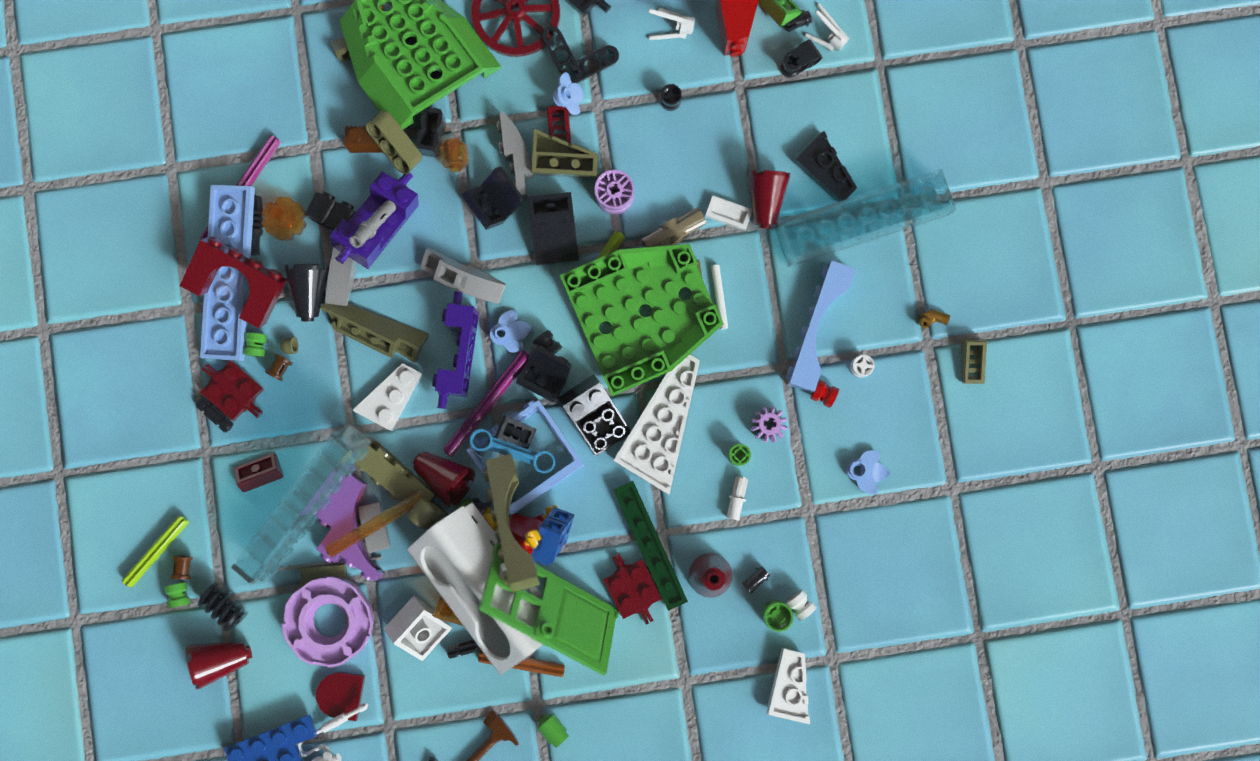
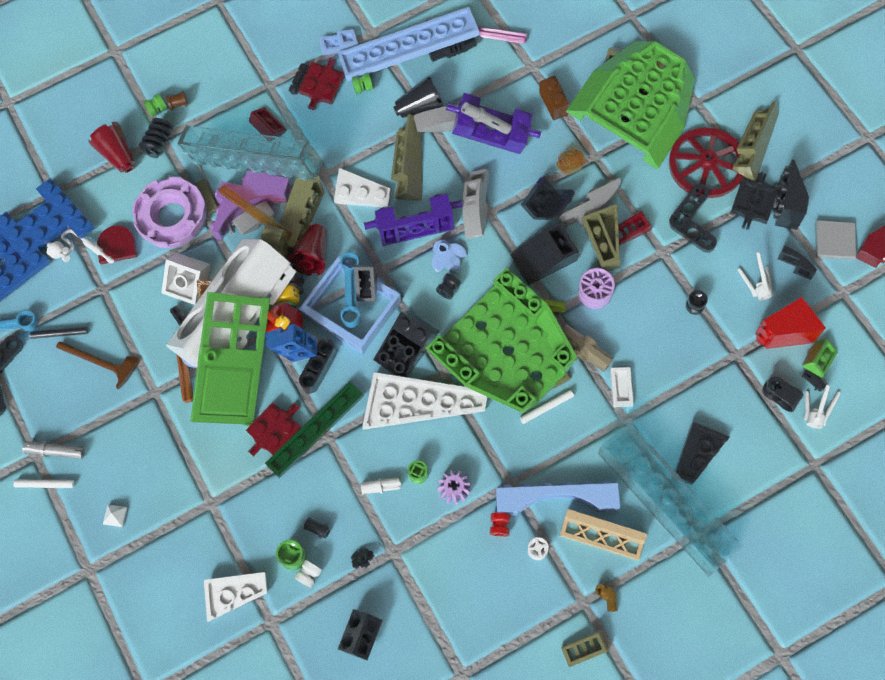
camera: 75 degrees right, 15 degrees down
(155, 551) = (183, 80): lime axle -> none
(185, 352) = (341, 41): none -> light blue slope
(263, 283) = (409, 66): dark red arch -> none
(278, 367) = (351, 105): reddish brown bush -> none
(284, 218) = (466, 66): clear orange plant -> none
(289, 345) = (371, 107): olive hinge -> none
(327, 211) = (486, 89): black brick -> none
(393, 142) = (557, 111): olive beam -> none
(430, 134) = (583, 136): black brick -> none
(486, 404) = (386, 262): magenta axle -> none
(519, 564) = (322, 288): olive arch -> none
(544, 373) = (422, 292): black bracket -> none
(552, 729) = (136, 409): bright green brick -> none
(568, 94) = (659, 222): light blue plate -> none
(592, 521) = (318, 375): none -> black beam
(704, 568) = (307, 489): cone -> none
(767, 195) = (649, 409): dark red cone -> none
(804, 544) = (361, 558): none -> black plant
(868, 290) = (605, 527): none -> tan fence
(870, 471) = (447, 593): light blue plate -> none
(883, 574) = (360, 634): none -> black brick

